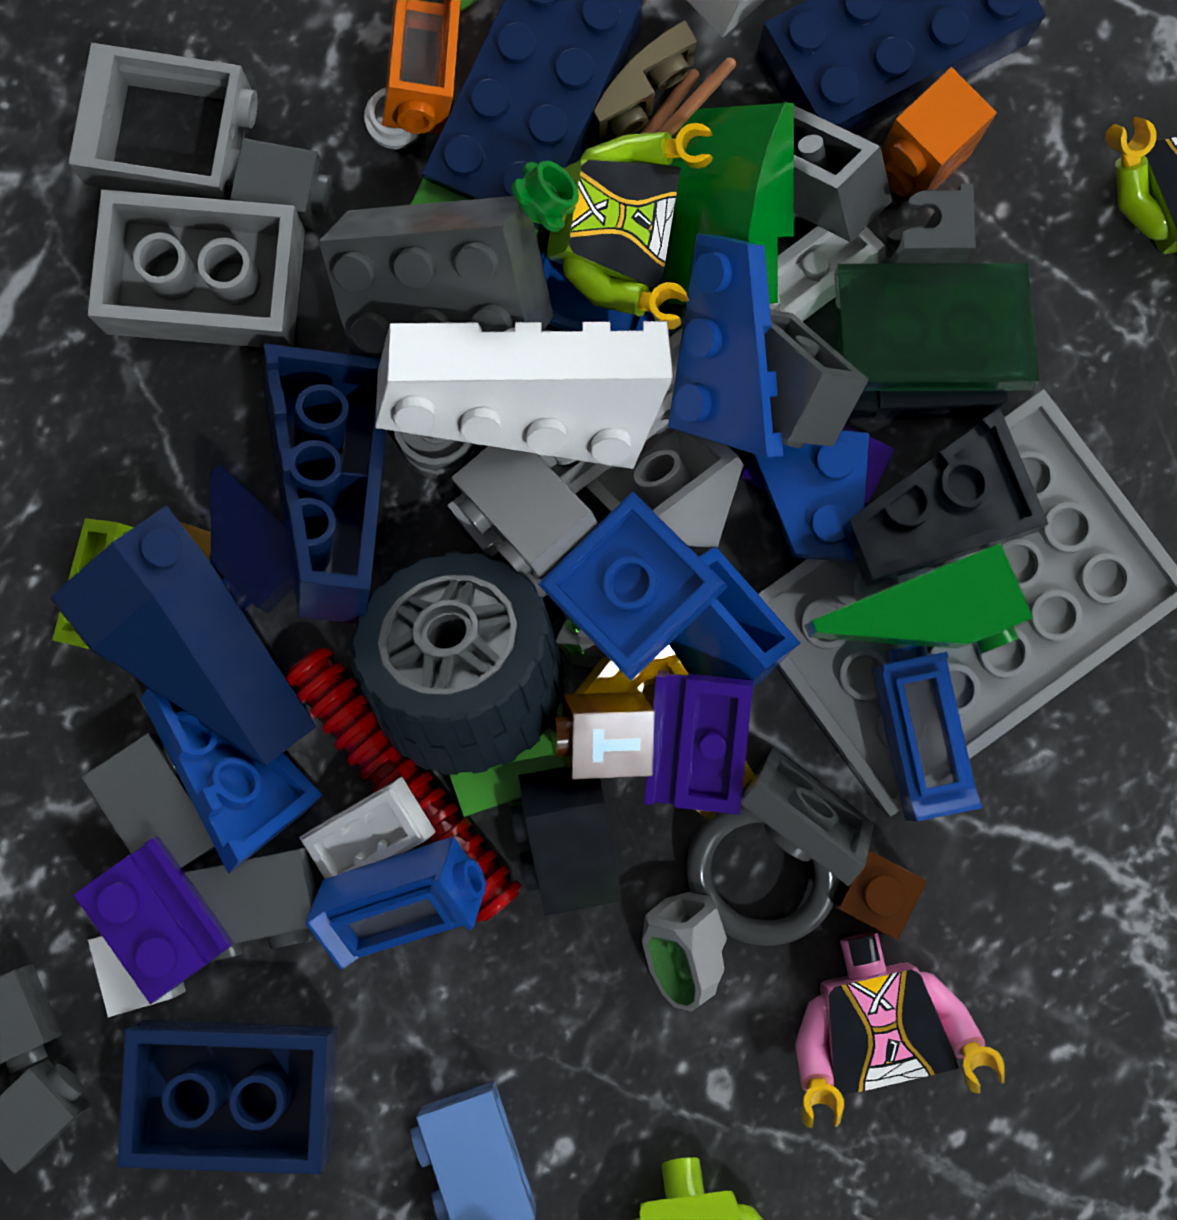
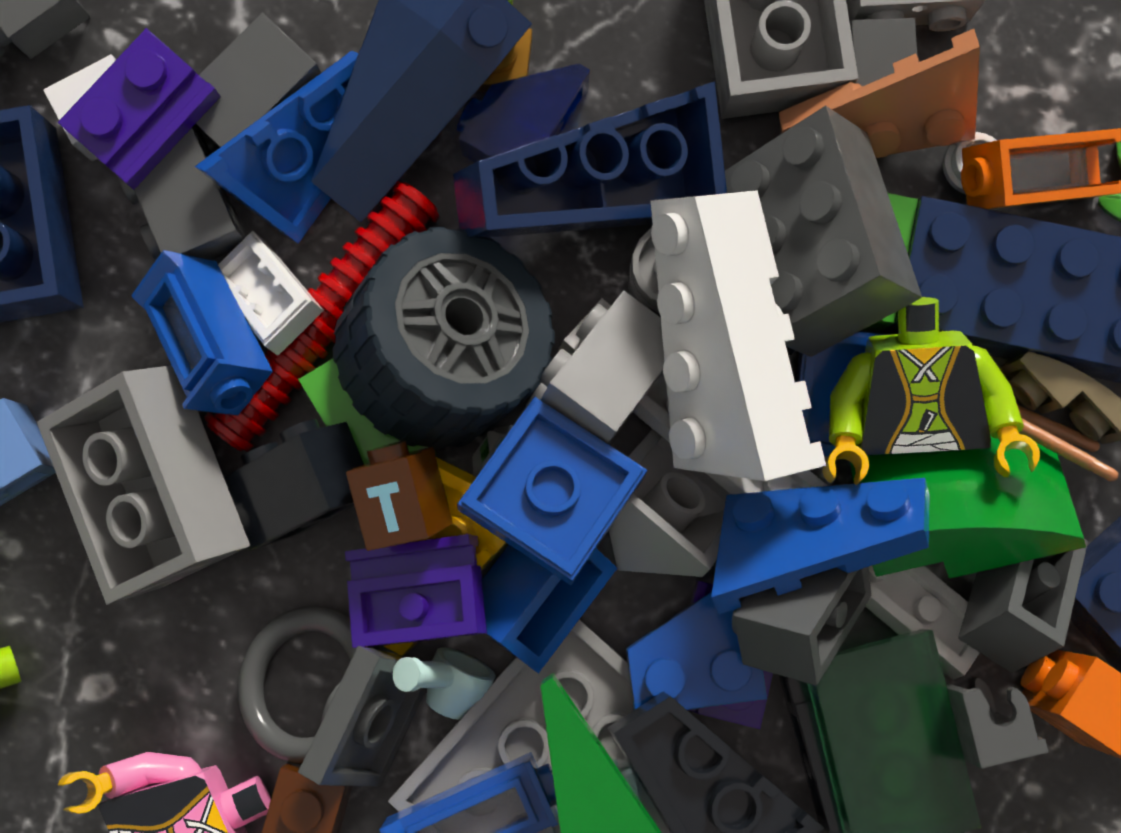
camera: 80 degrees right, 0 degrees up
(333, 165) = (914, 107): none -> nougat wing
(533, 991) = (142, 483): none -> light grey brick
(546, 194) = (926, 314): green plate -> none
(685, 948) = (218, 623): light grey rock -> none
(789, 733) = (451, 680): none -> light aqua bar

